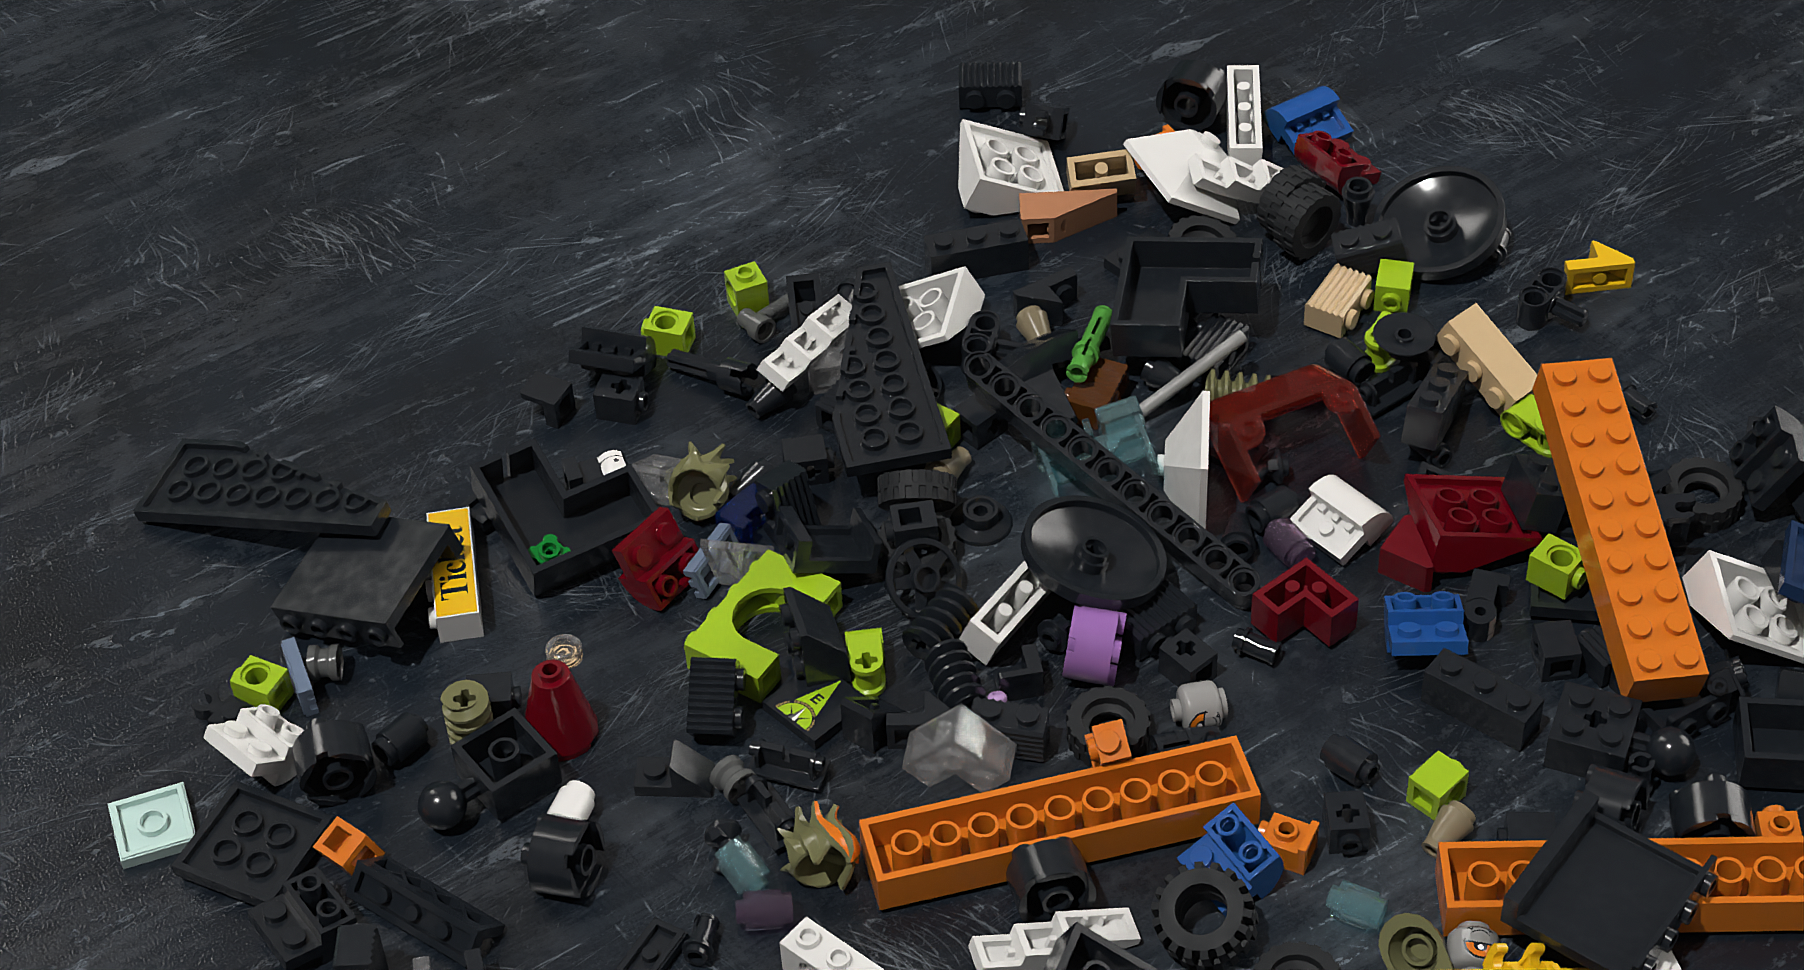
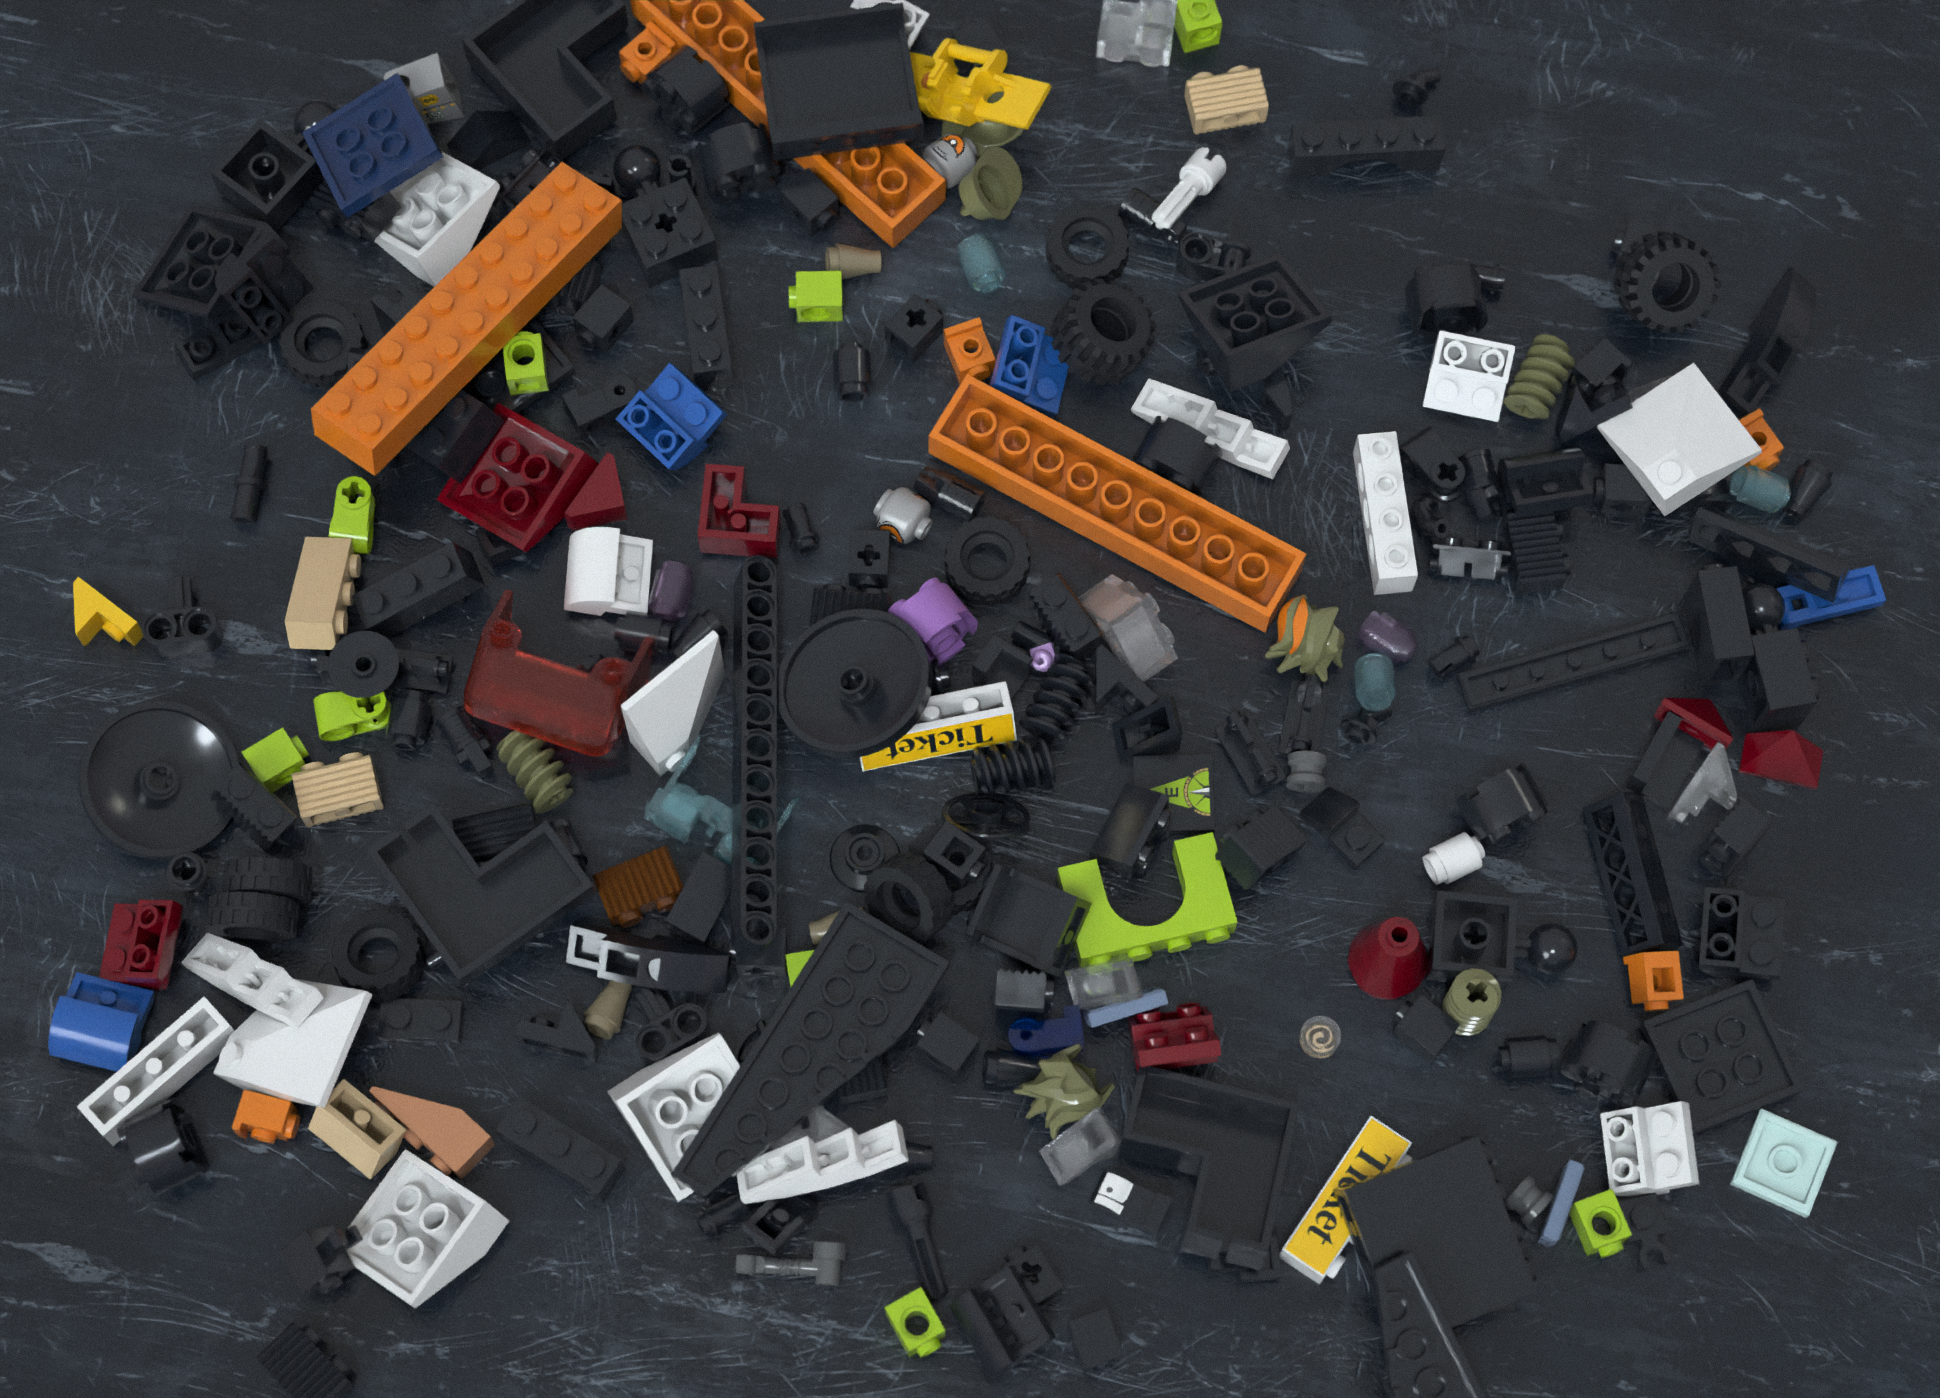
camera: 140 degrees left, 25 degrees up
(549, 543) = (1256, 1144): green plate -> none
(746, 288) = (801, 1304): lime brick -> none
(866, 660) = (1095, 795): lime piece -> none
(1087, 350) = (621, 906): bright green pin -> none
(1108, 743) = (1025, 514): orange brick -> none
(1192, 372) = (560, 816): light grey bar -> none

